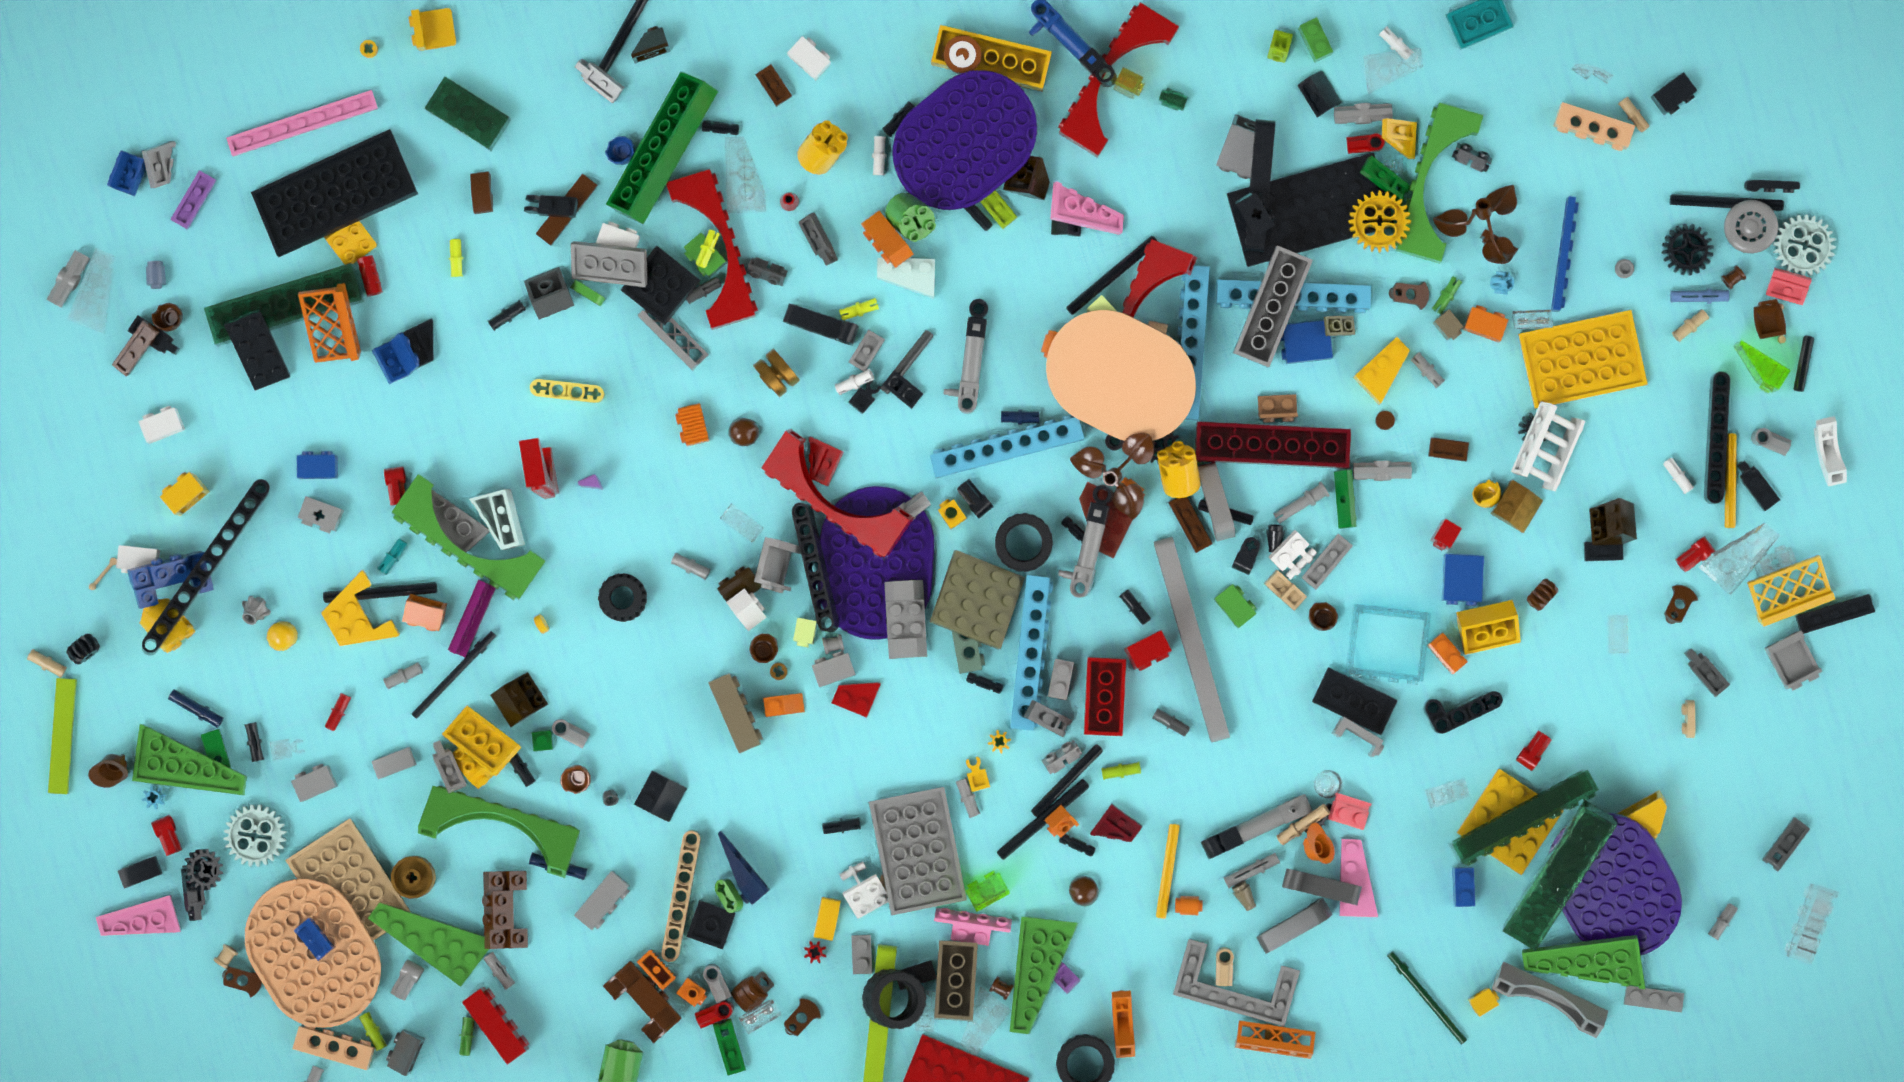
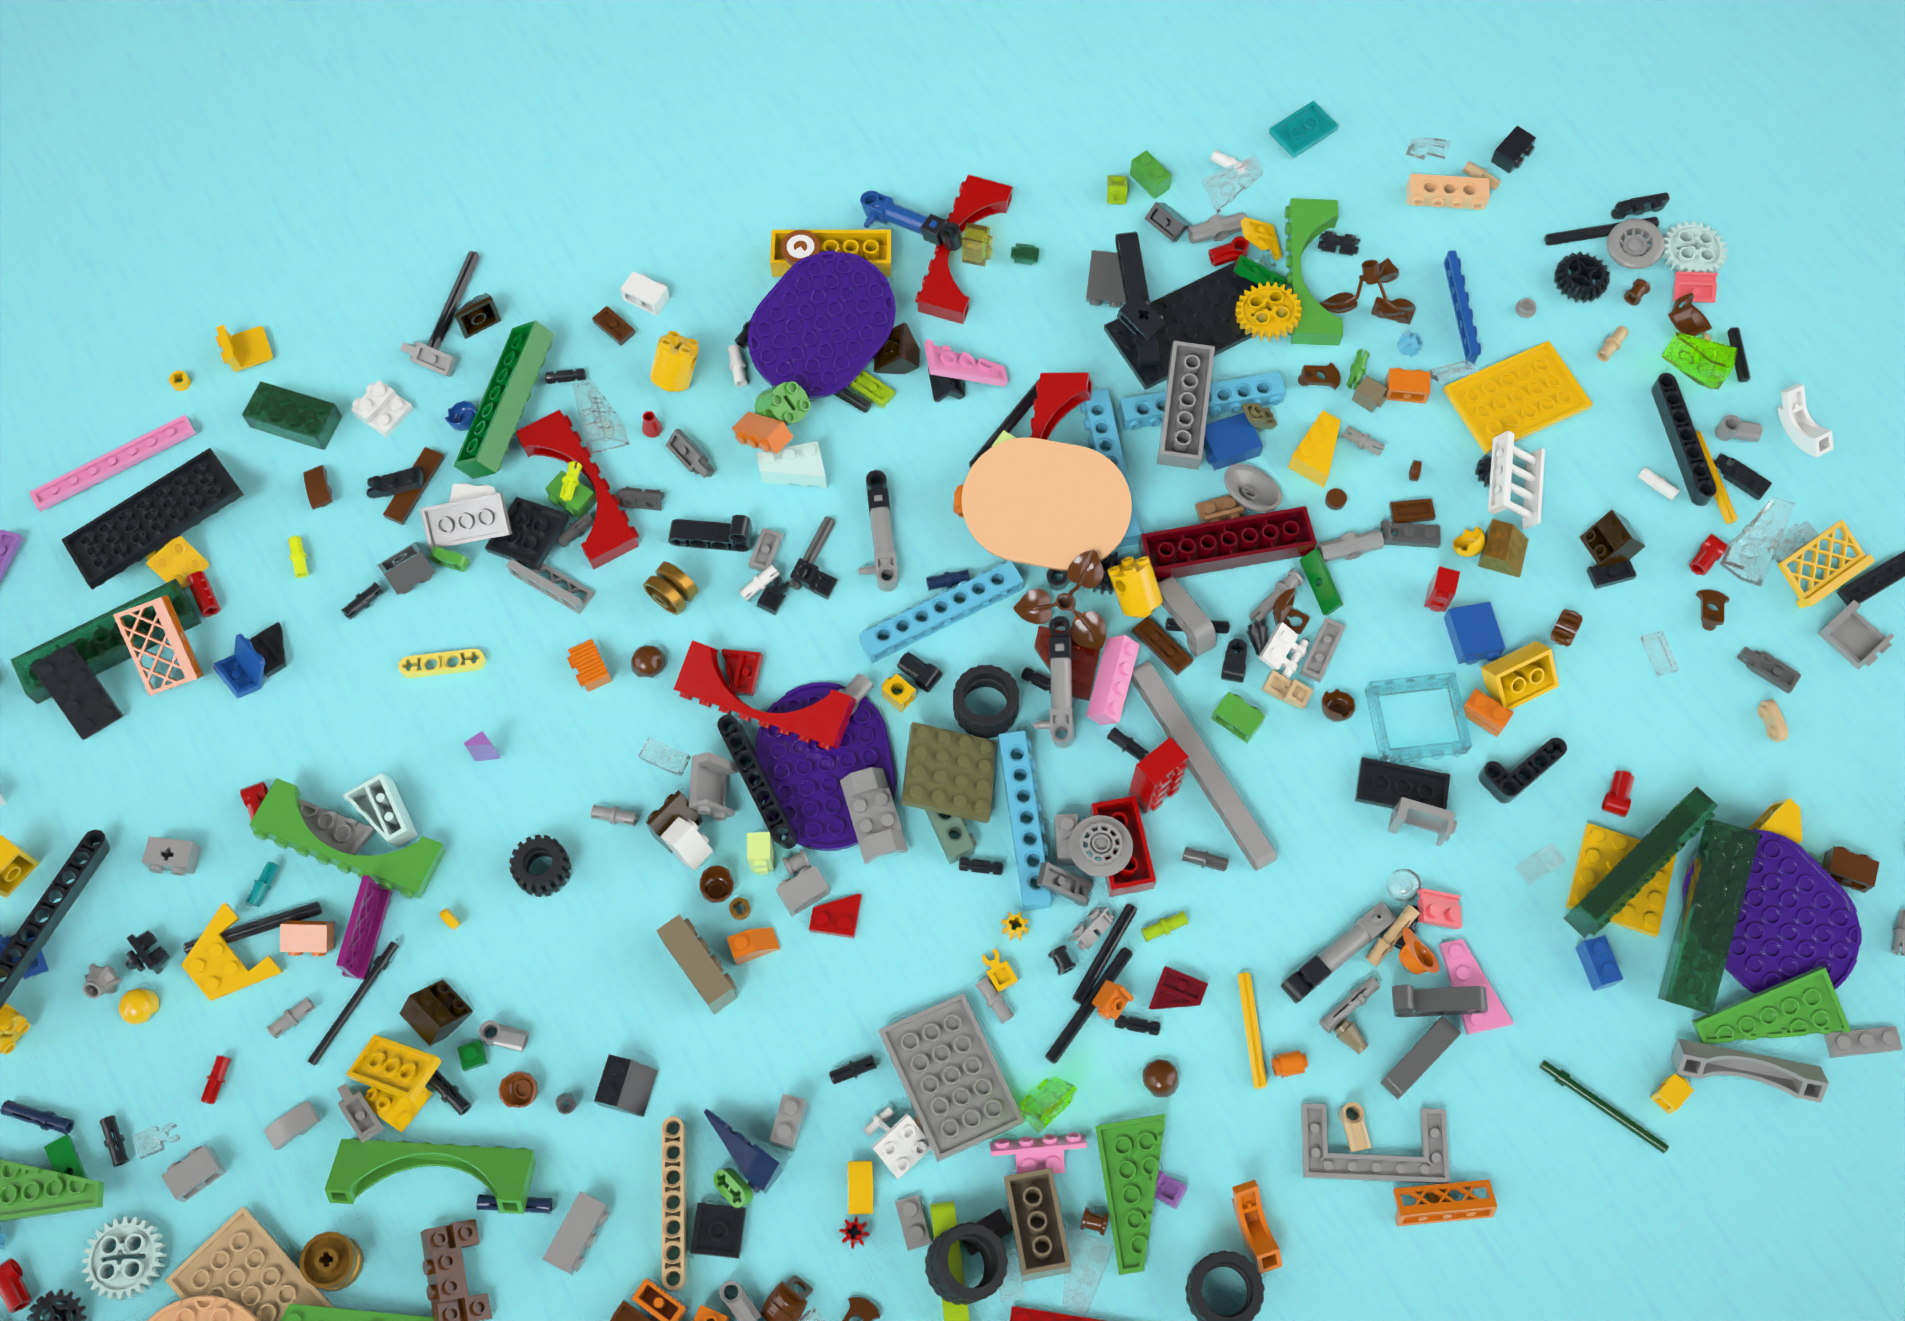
camera: 15 degrees left, 20 degrees down
(289, 586) = (152, 960): none -> black hips
(317, 466) = (162, 804): blue brick -> none
(539, 468) = (417, 739): red arch -> none
(548, 123) = (381, 408): none -> white plate
(782, 856) = (788, 1122): none -> light grey brick
(859, 309) = (752, 509): neon yellow pin -> none
(1030, 778) = (1062, 960): none -> black bush
(1085, 696) = (1100, 845): none -> light grey wheel
(1137, 548) = (1112, 680): none -> bright pink brick
(1304, 515) = (1283, 608): none -> reddish brown piece
(1318, 393) = (1252, 488): none -> light grey dish
(1440, 471) = (1411, 534): none -> dark grey plate
(1463, 411) = (1415, 470): none -> reddish brown tile
(1700, 860) = (1850, 868): none -> reddish brown brick
(1723, 296) = (1618, 314): medium blue pin -> none

